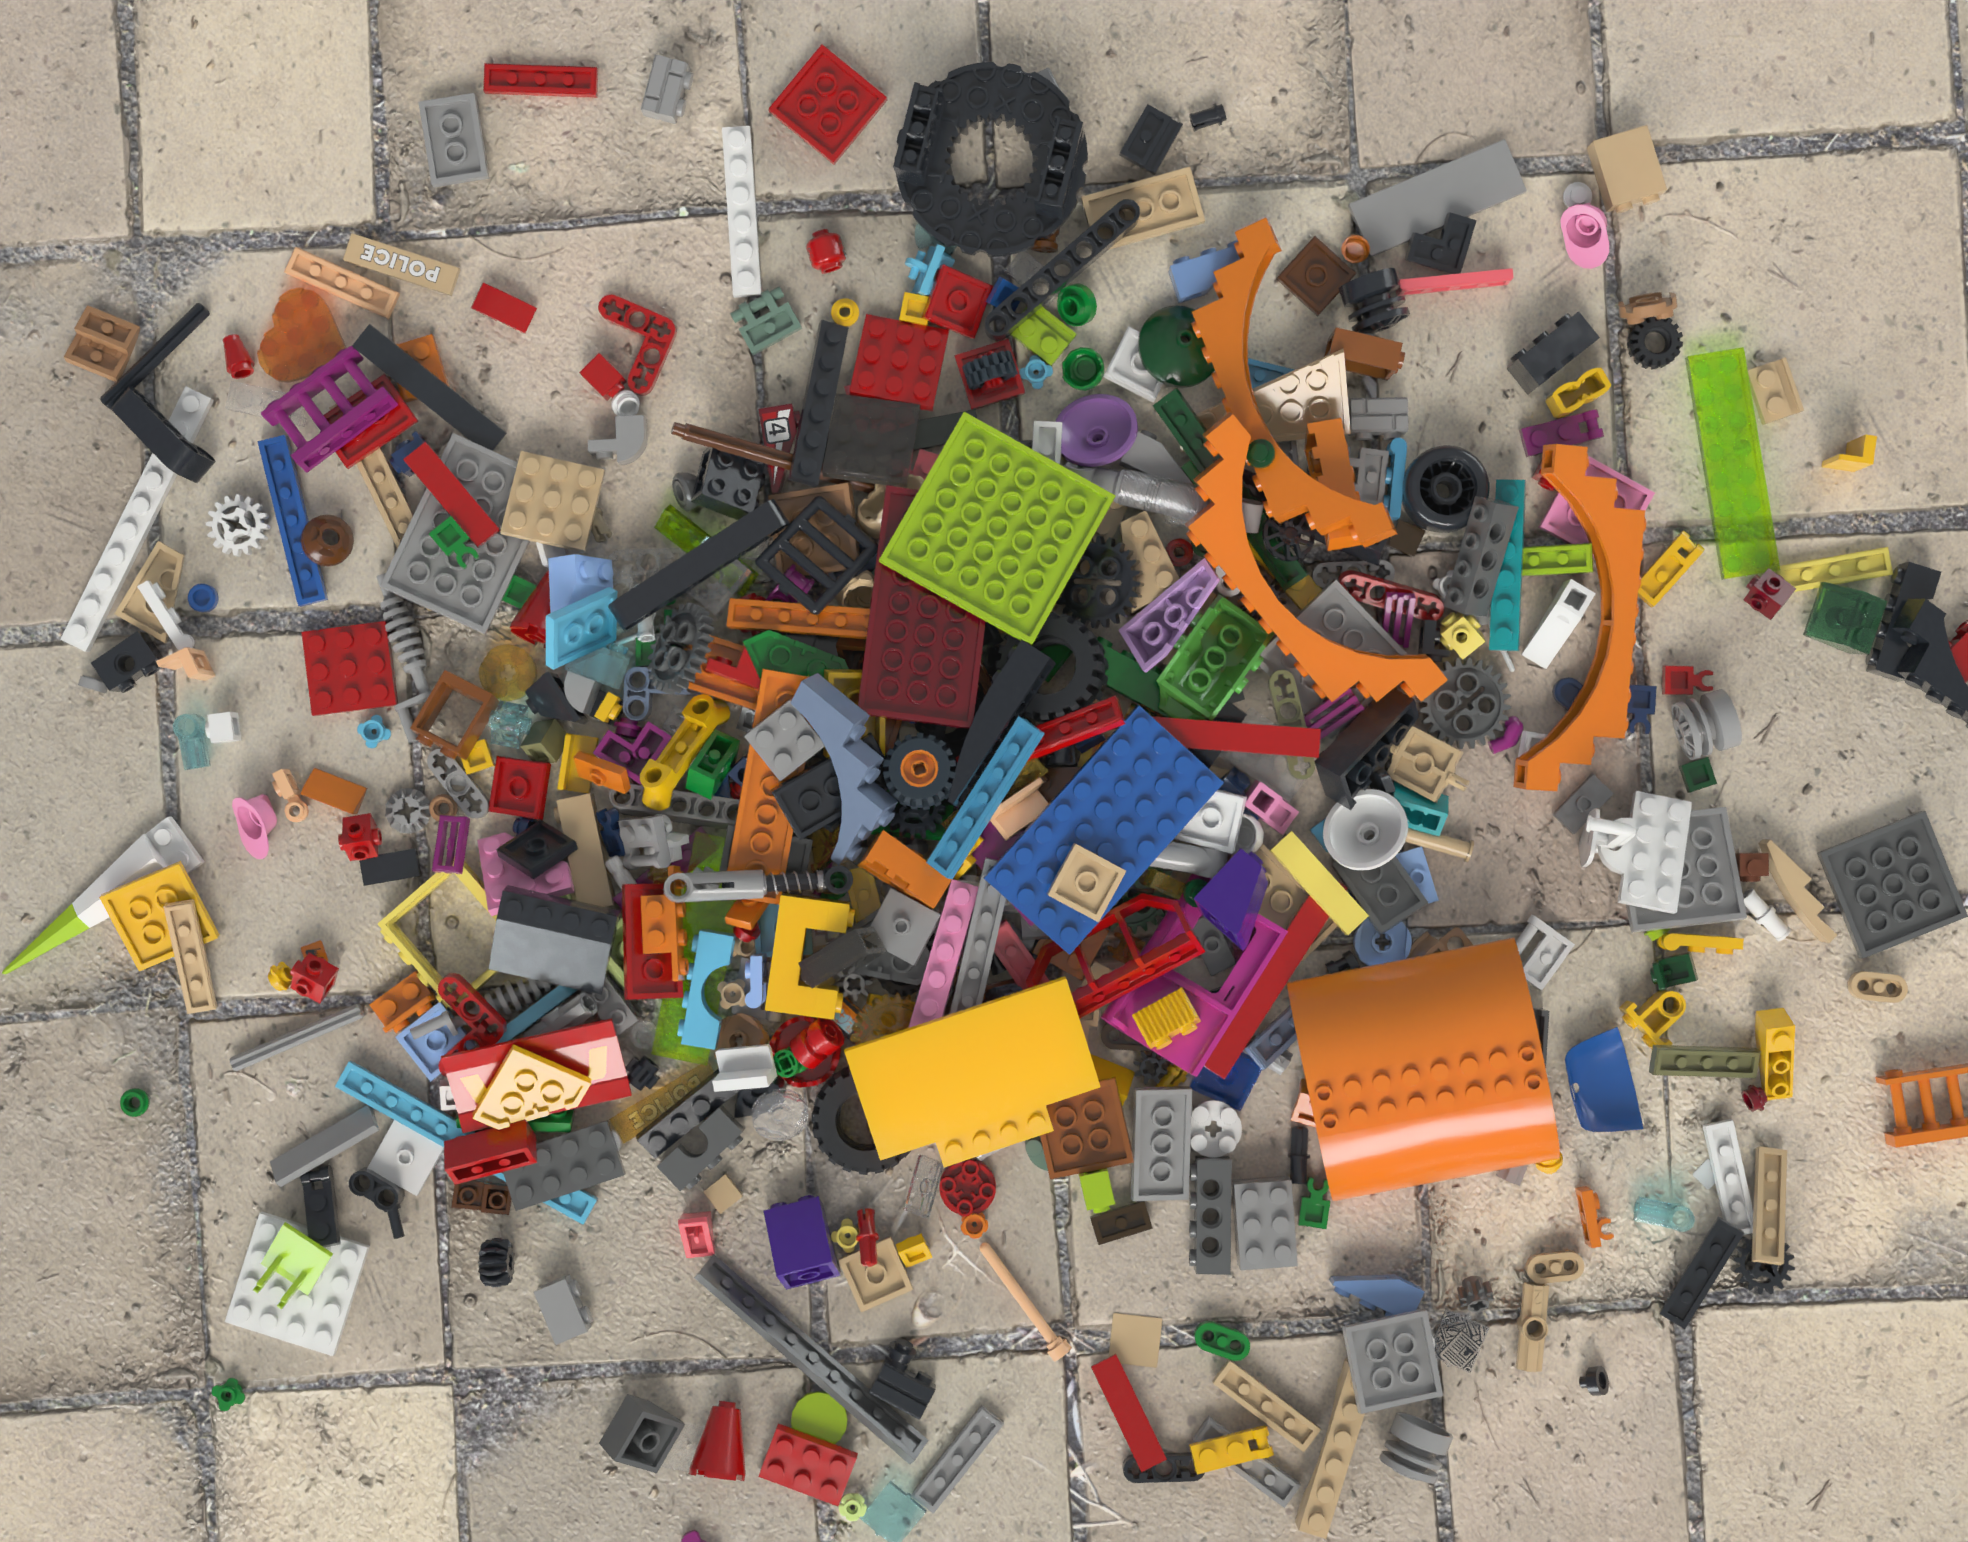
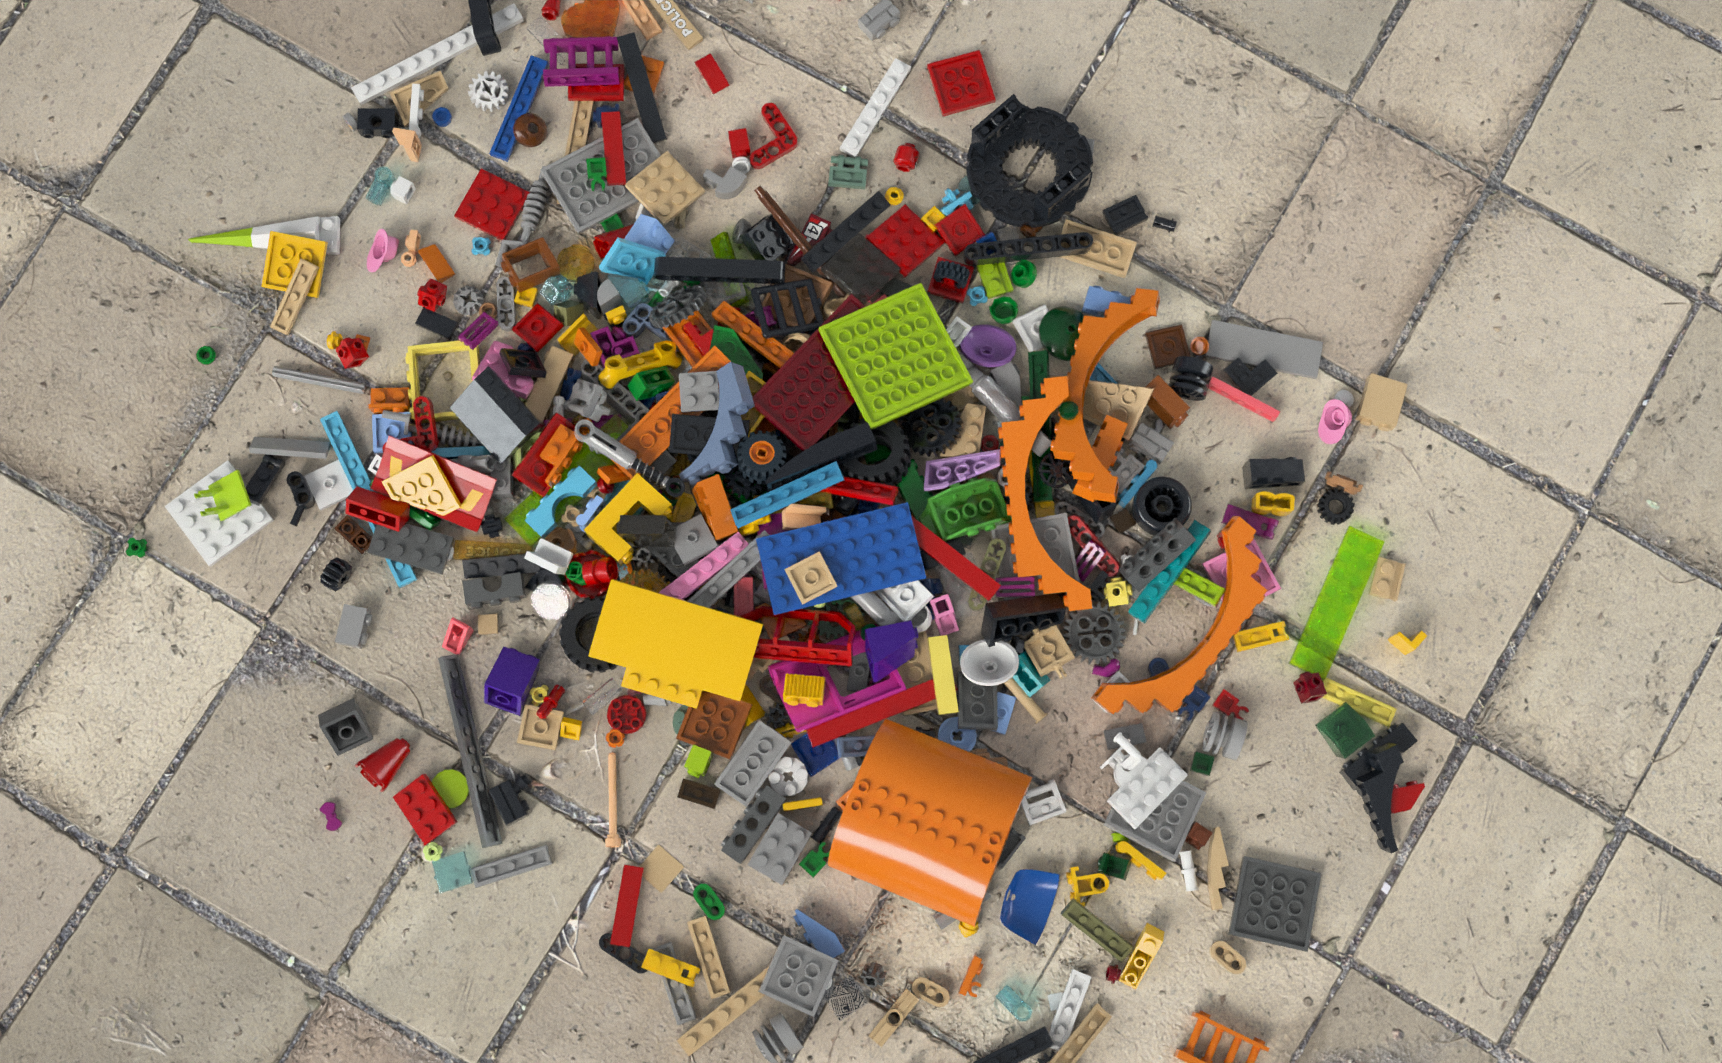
camera: 30 degrees right, 10 degrees down
(1254, 1151) = (802, 804): none -> yellow tile
(1558, 622) = (1177, 623): white slope -> none

